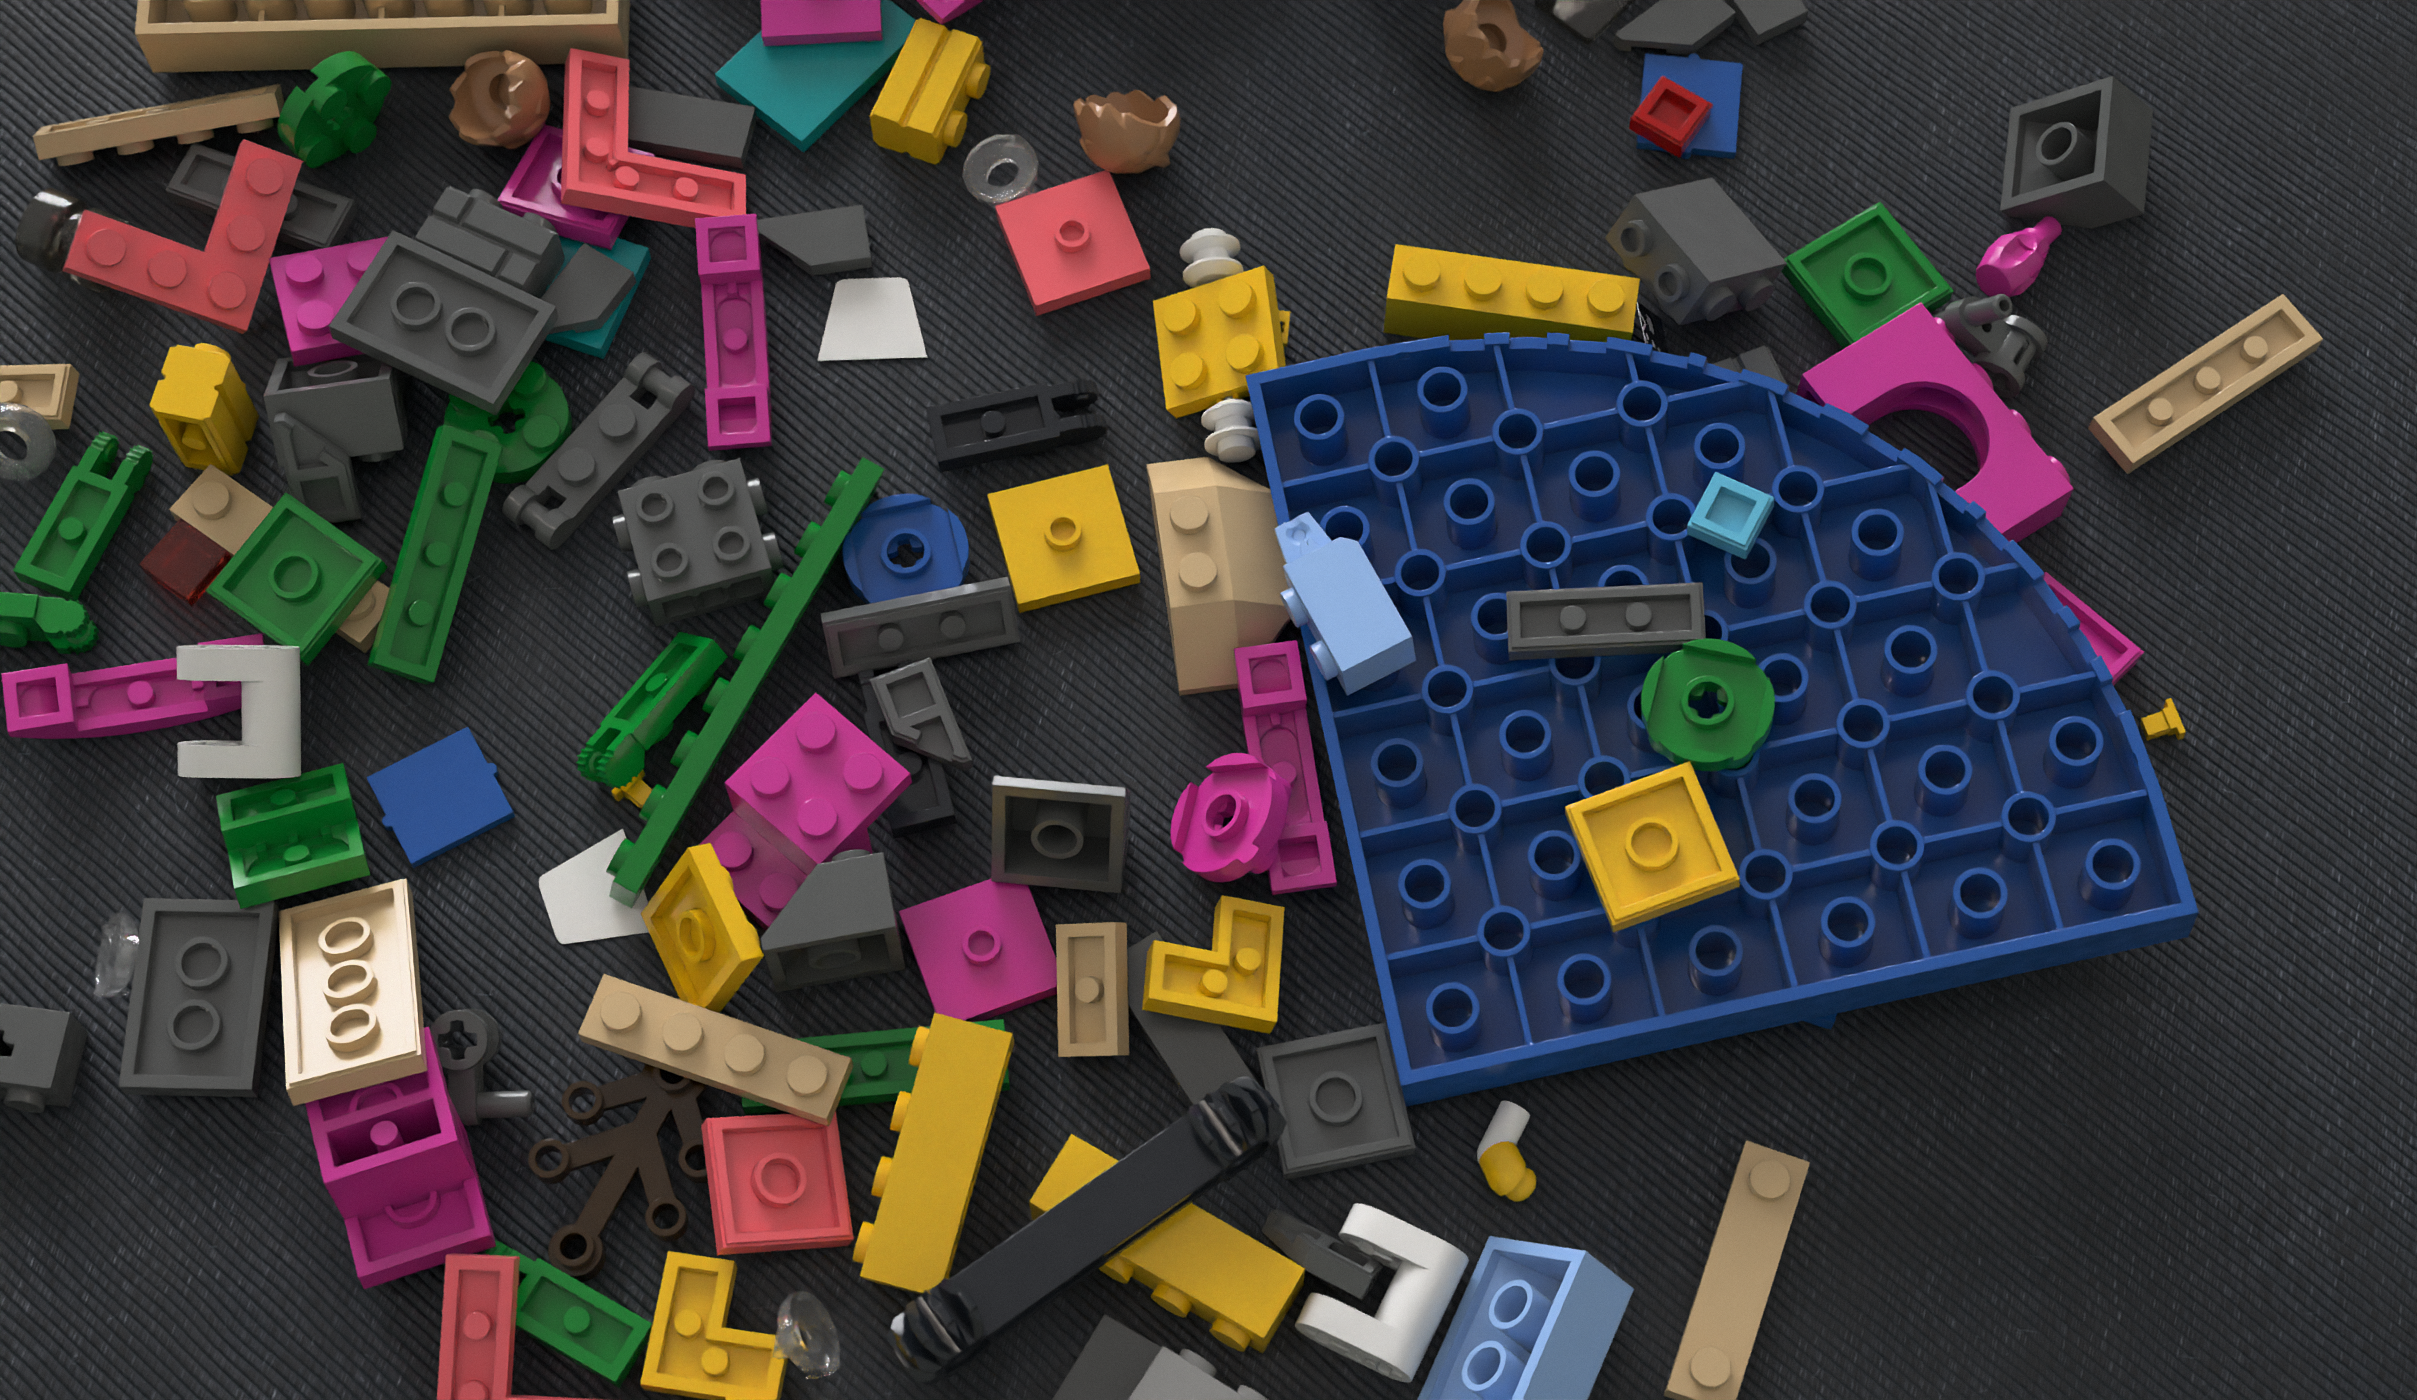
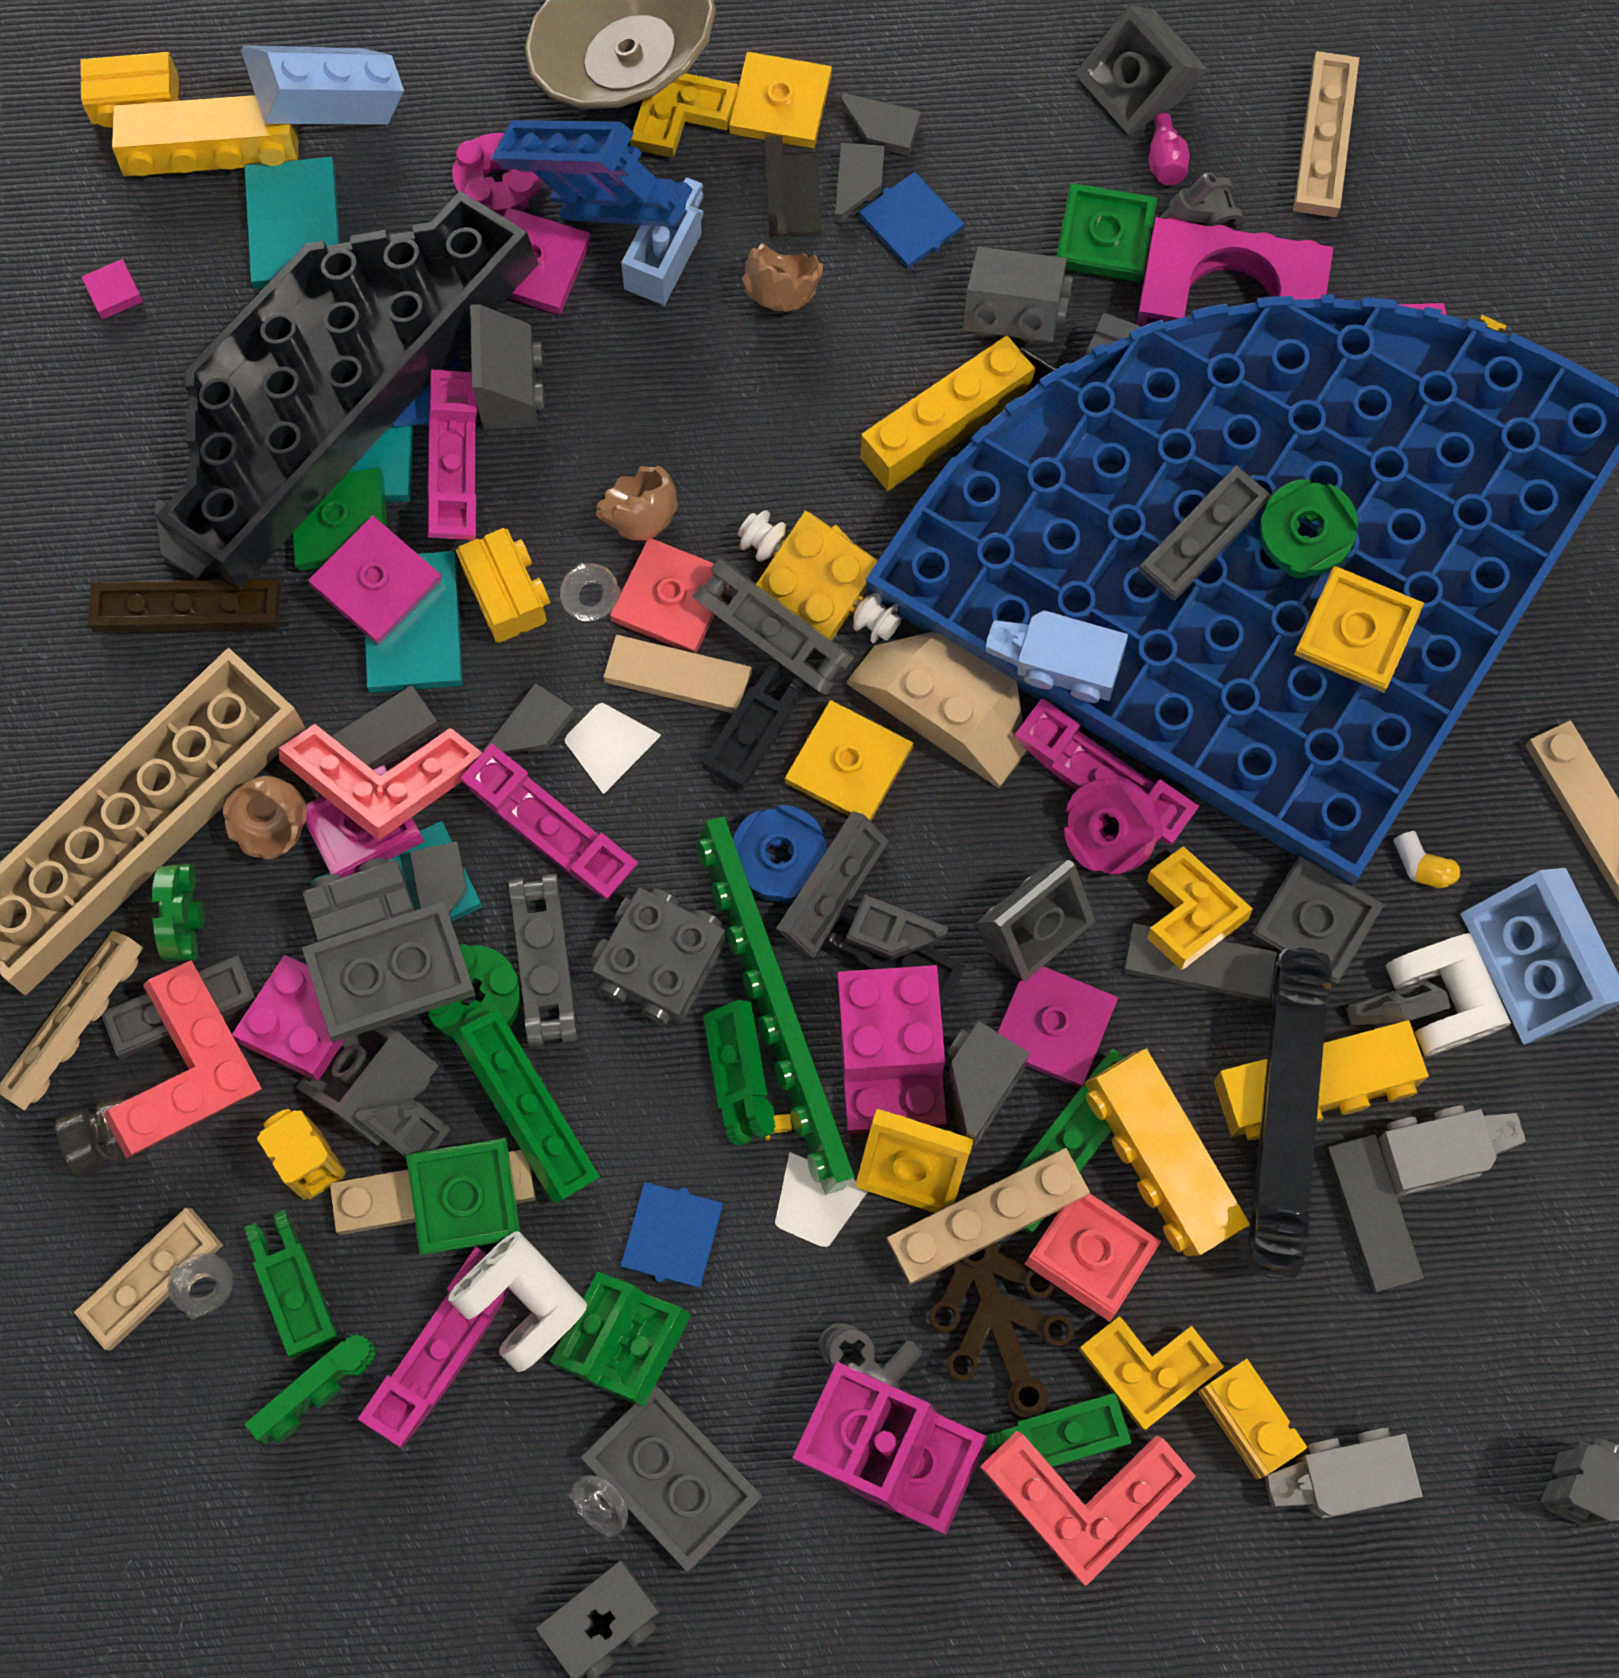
camera: 45 degrees left, 5 degrees up
(185, 562) = (378, 1251): clear red tile -> none
(351, 992) = (766, 1387): tan tile -> none
(823, 1347) = (1198, 1315): clear piece -> none
(998, 313) = (677, 674): none -> tan tile
(1092, 989) = (1140, 986): tan plate -> none
(1123, 347) = (772, 626): none -> dark grey plate
(1670, 116) = (912, 233): red tile -> none
(1730, 515) = (1209, 416): medium azure tile -> none

